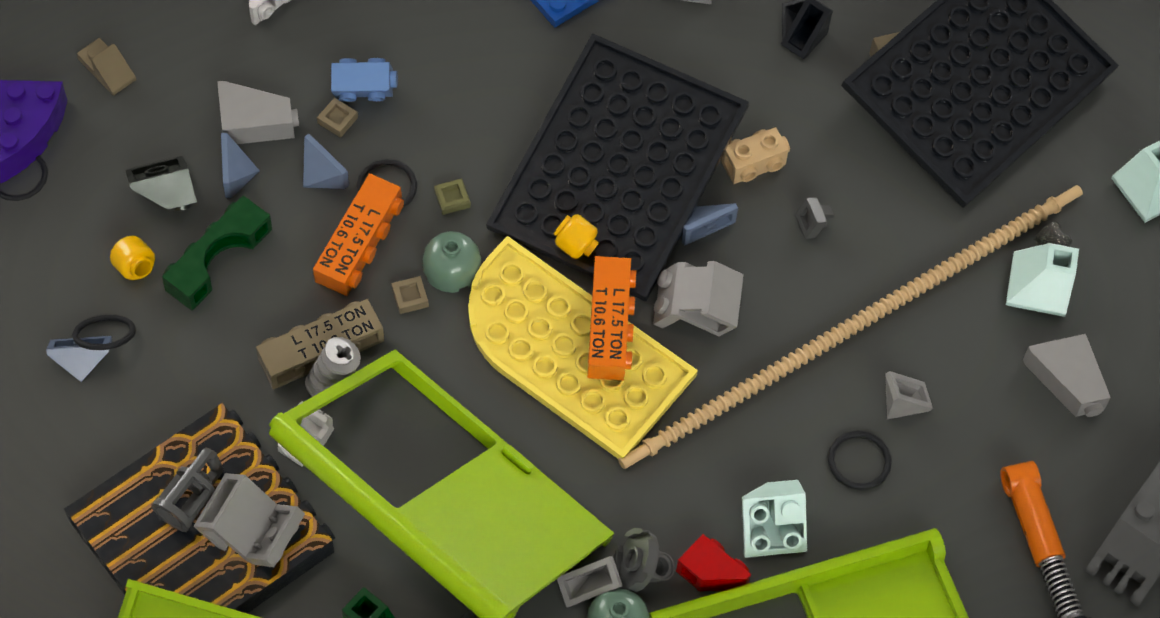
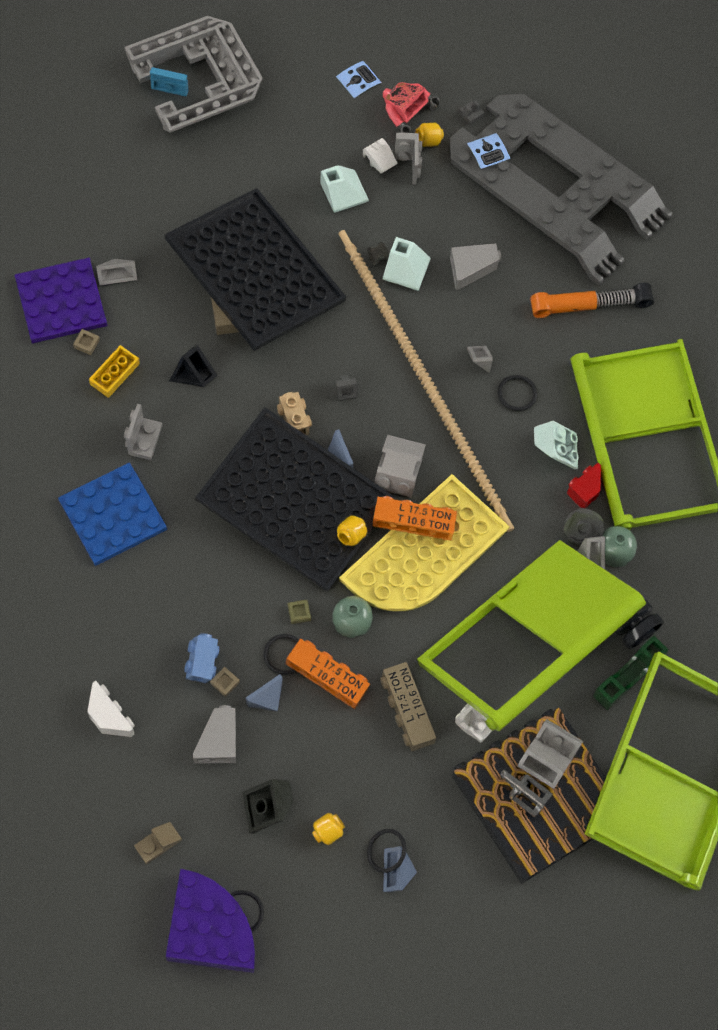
camera: 85 degrees left, 5 degrees up
(236, 166) = (259, 754): sand blue slope -> none
(240, 226) = (348, 789): dark green arch -> none
(335, 363) = (435, 697): light grey piece -> none
(410, 295) = (373, 646): dark tan tile -> none

